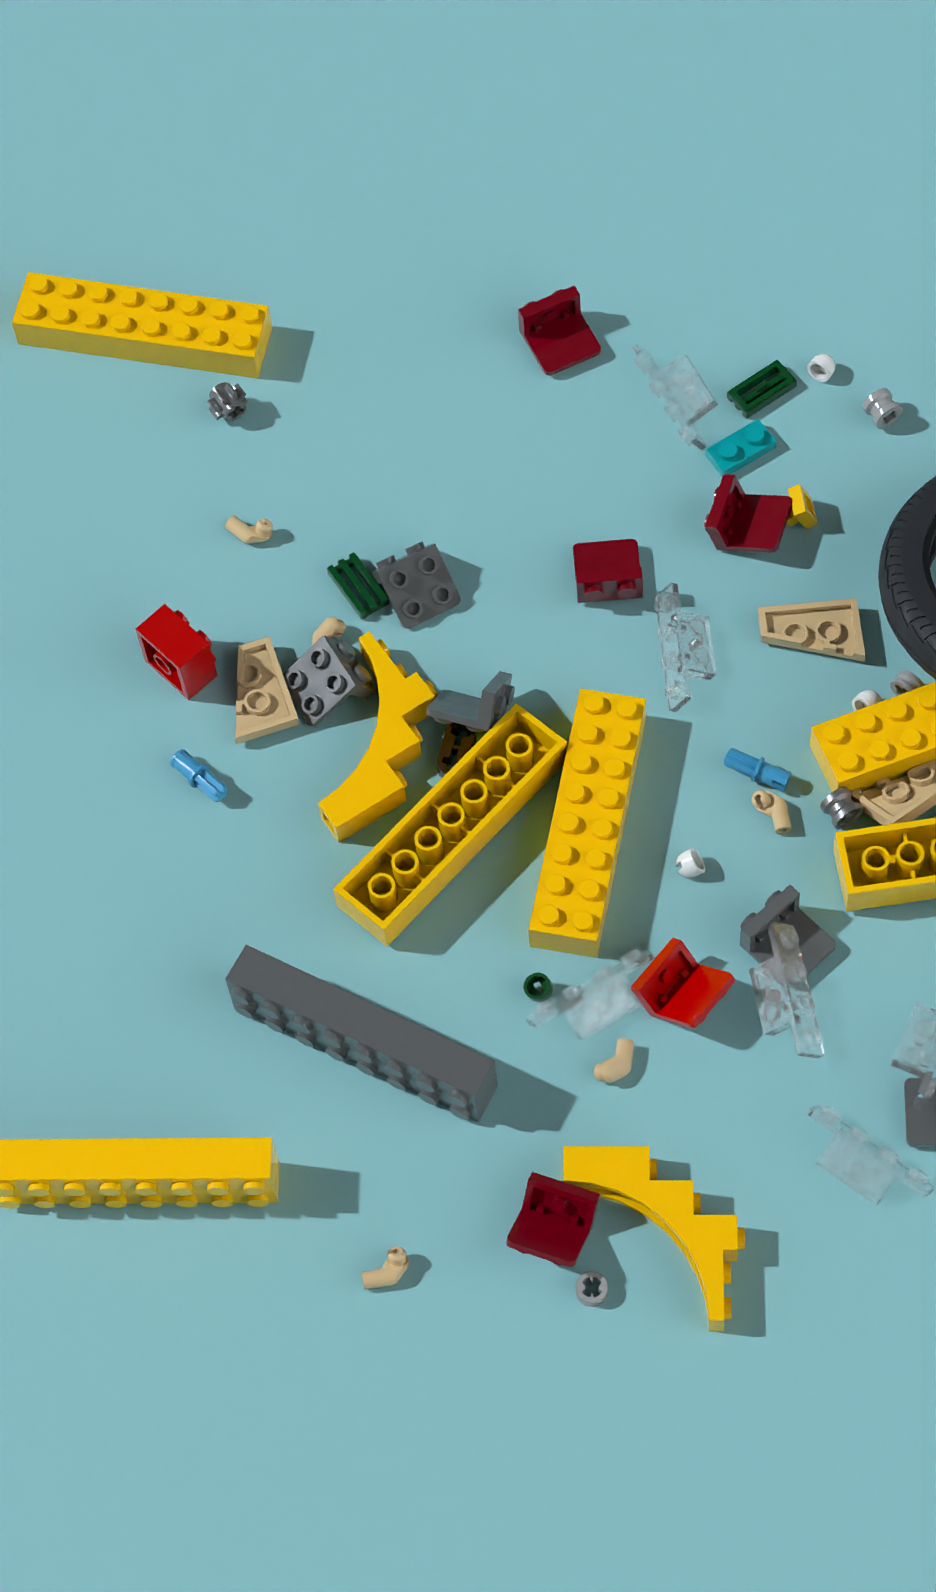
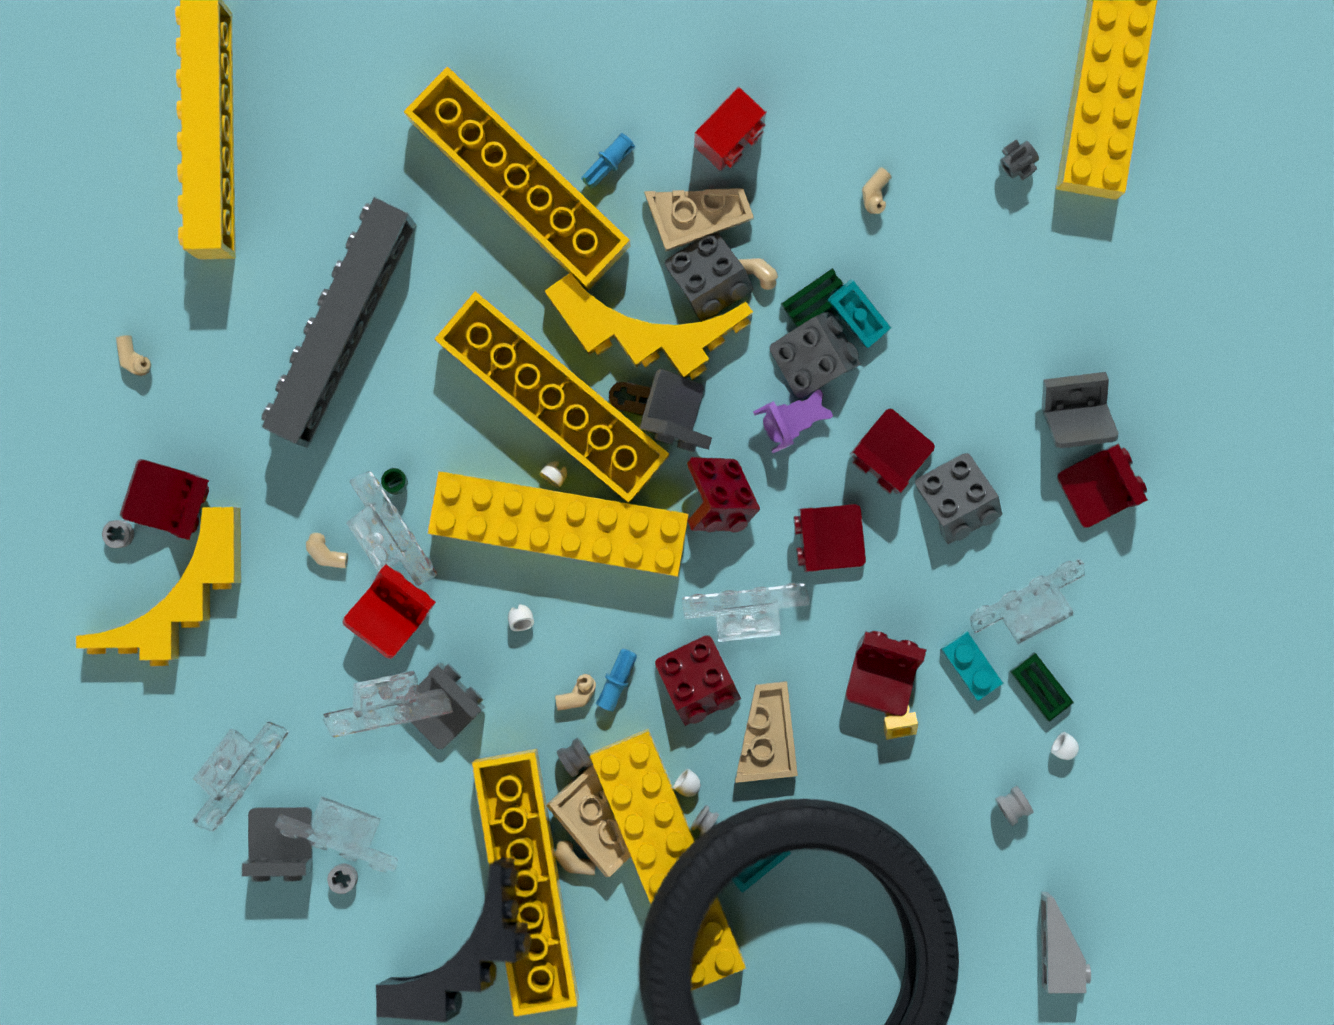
camera: 80 degrees right, 25 degrees up
(211, 857) = (517, 178): none -> yellow brick
(375, 541) = (859, 313): none -> teal plate
(483, 354) = (1078, 410): none -> dark grey bracket
(484, 608) = (786, 422): none -> medium lavender hair
(520, 515) = (892, 451): none -> dark red bracket
(535, 830) = (553, 474): none -> white hinge
(565, 648) = (725, 495): none -> dark red bracket
(567, 454) = (959, 497): none -> dark grey bracket
(756, 691) = (697, 680): none -> dark red bracket

